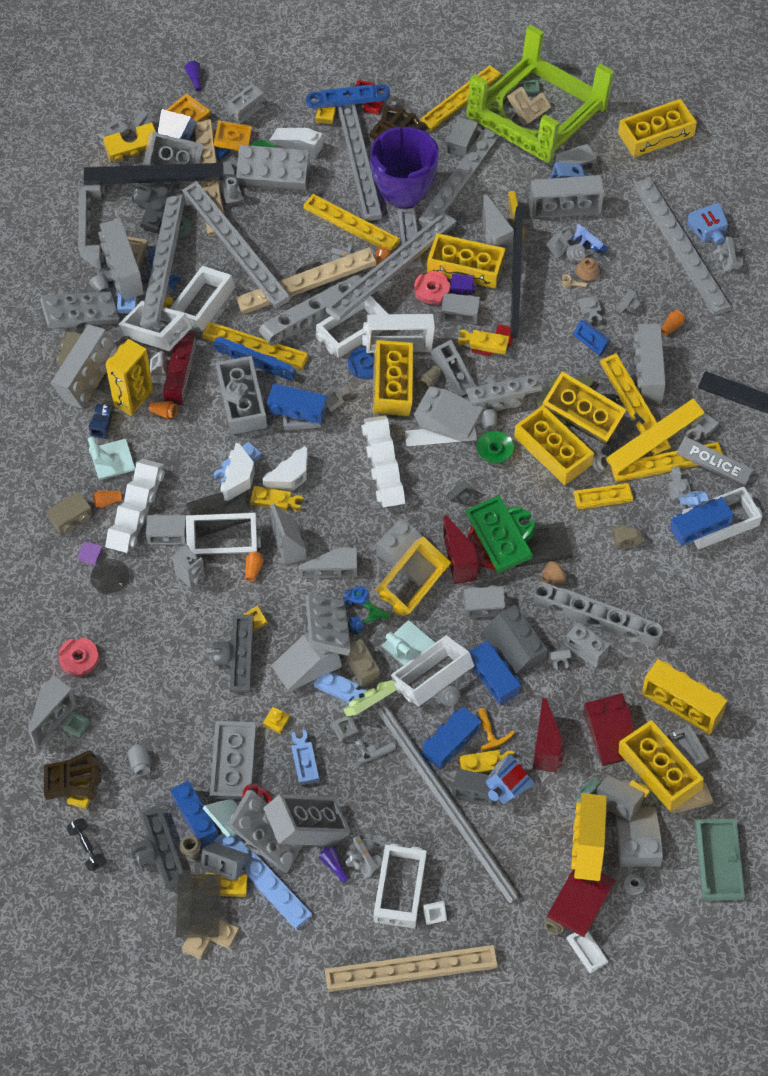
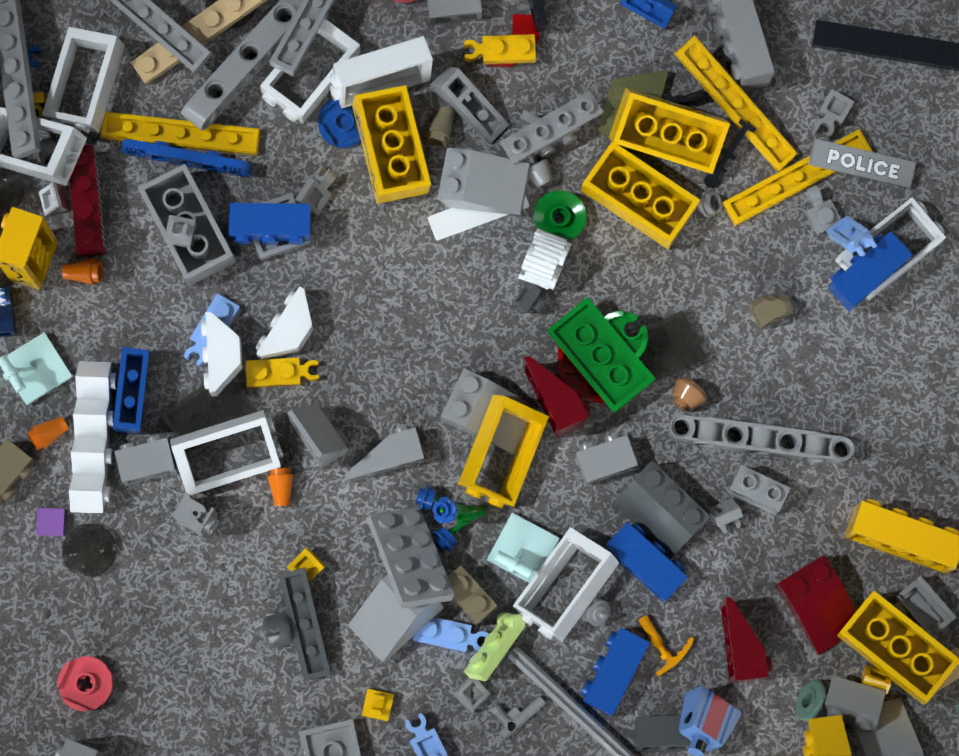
camera: 20 degrees left, 20 degrees up
(170, 483) = (130, 391): none -> blue brick
(384, 464) = (413, 277): white brick -> none
(476, 467) = (543, 258): none -> white brick
(482, 762) = (665, 693): yellow plate -> none
(603, 496) = (723, 253): yellow tile -> none
(655, 436) = (774, 146): yellow tile -> none

